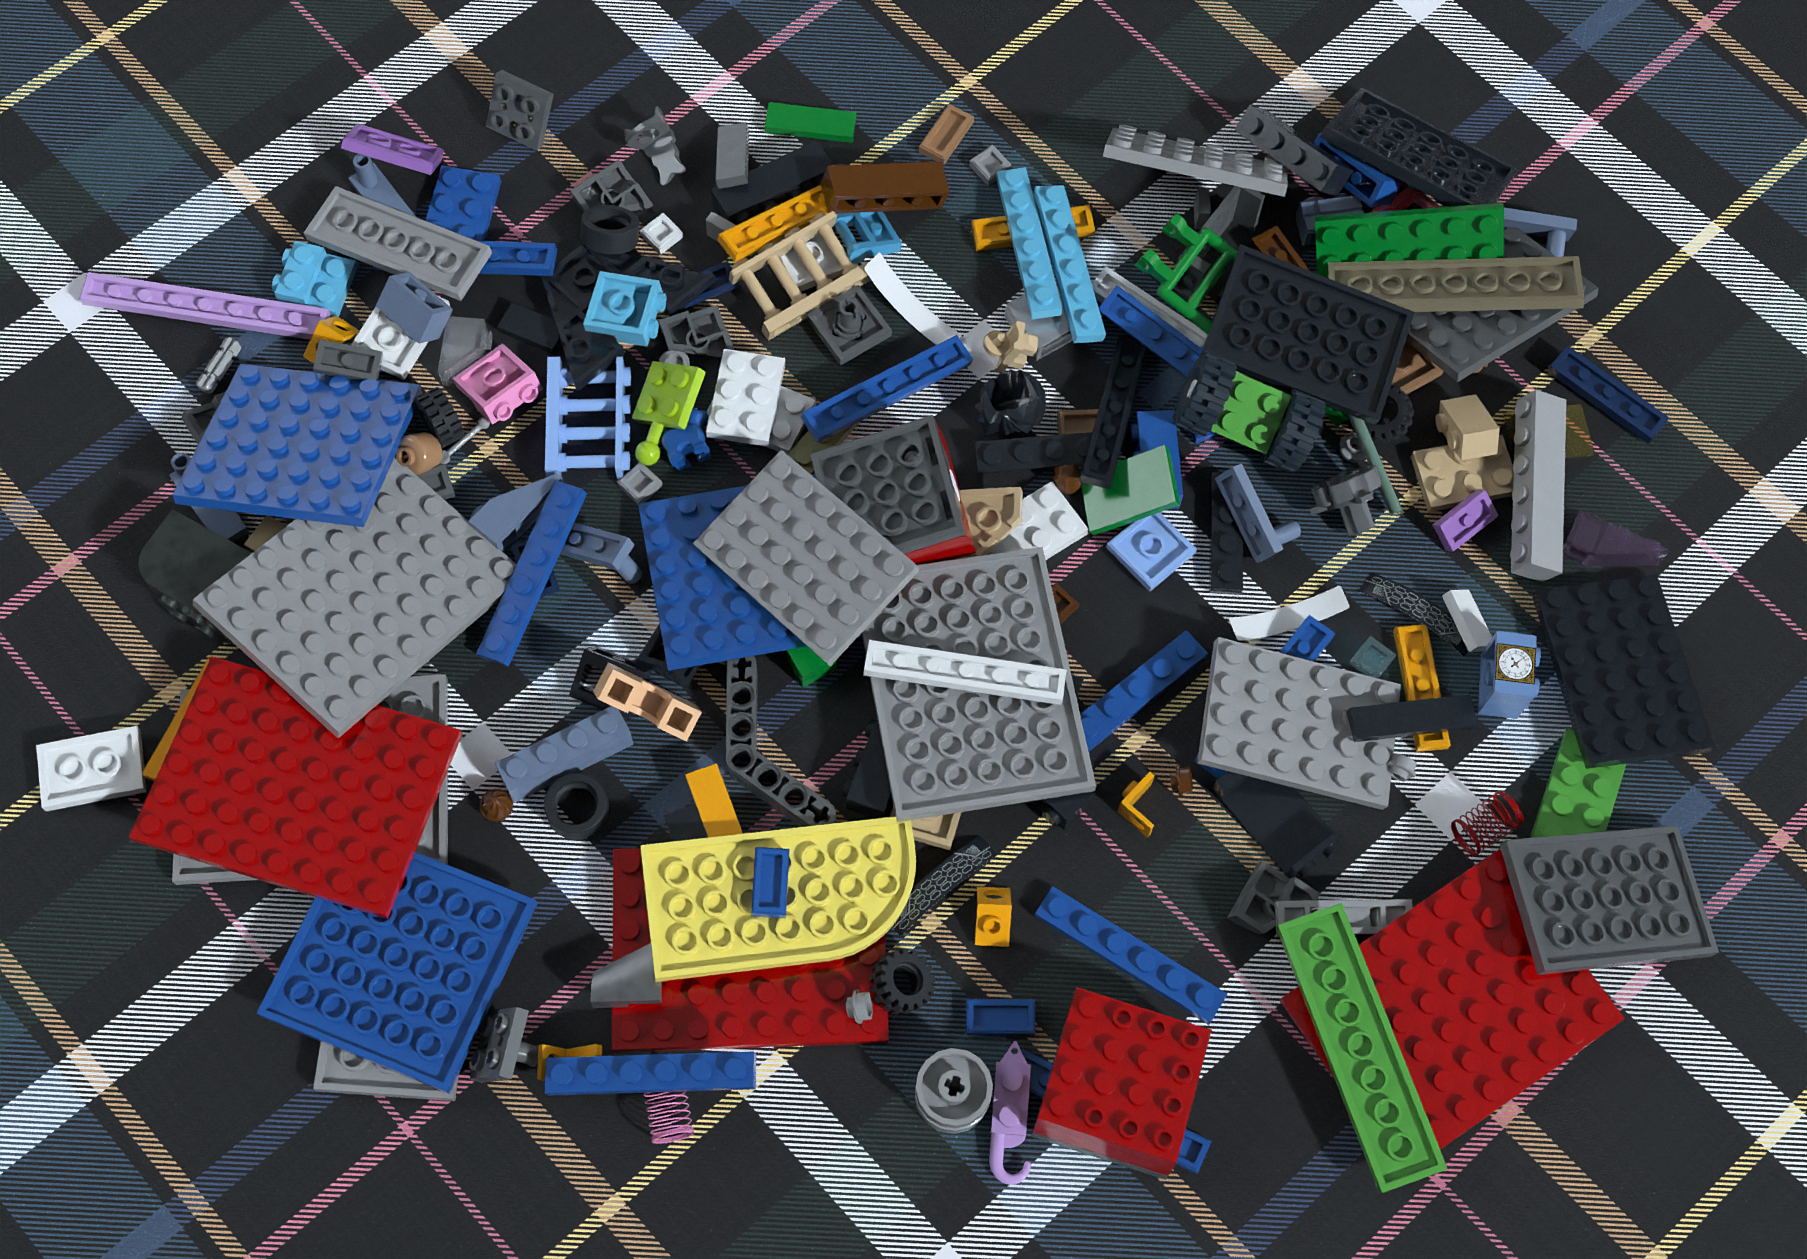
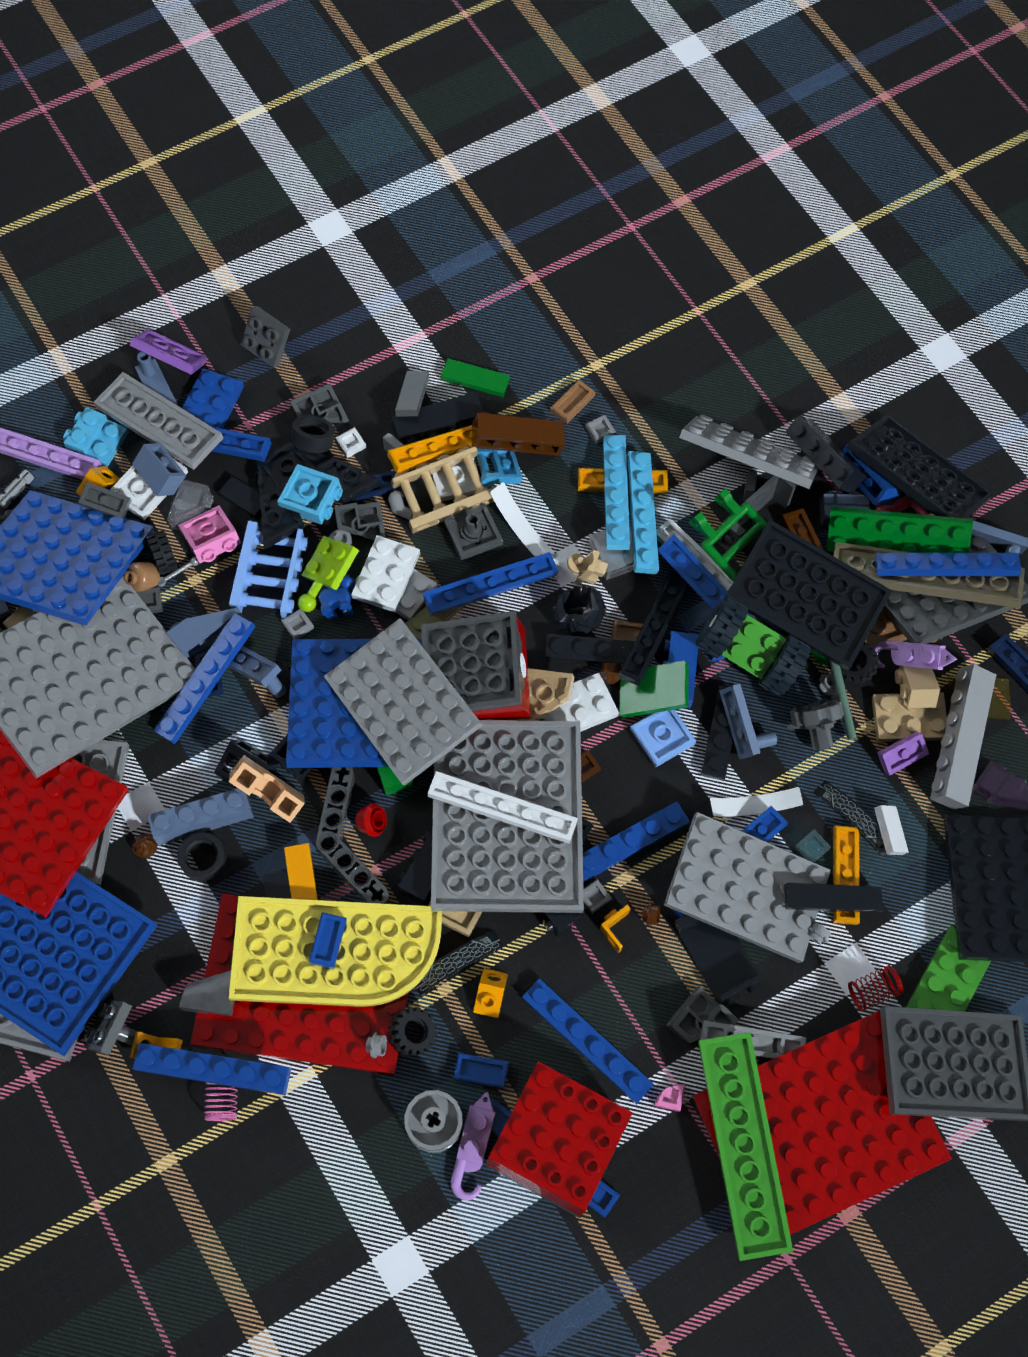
camera: 10 degrees right, 0 degrees up
(658, 144) = (360, 376): dark grey hair -> none
(742, 308) = (397, 505): none -> light grey arm
(791, 720) = (371, 820): none -> red cone
(1106, 769) = (595, 896): none -> light grey tile
(1252, 1008) = (671, 1098): none -> bright pink tile
(1461, 389) = (916, 654): none -> lavender plate
(1479, 267) = (947, 564): none -> blue plate
(1508, 674) = (912, 877): medium blue brick -> none

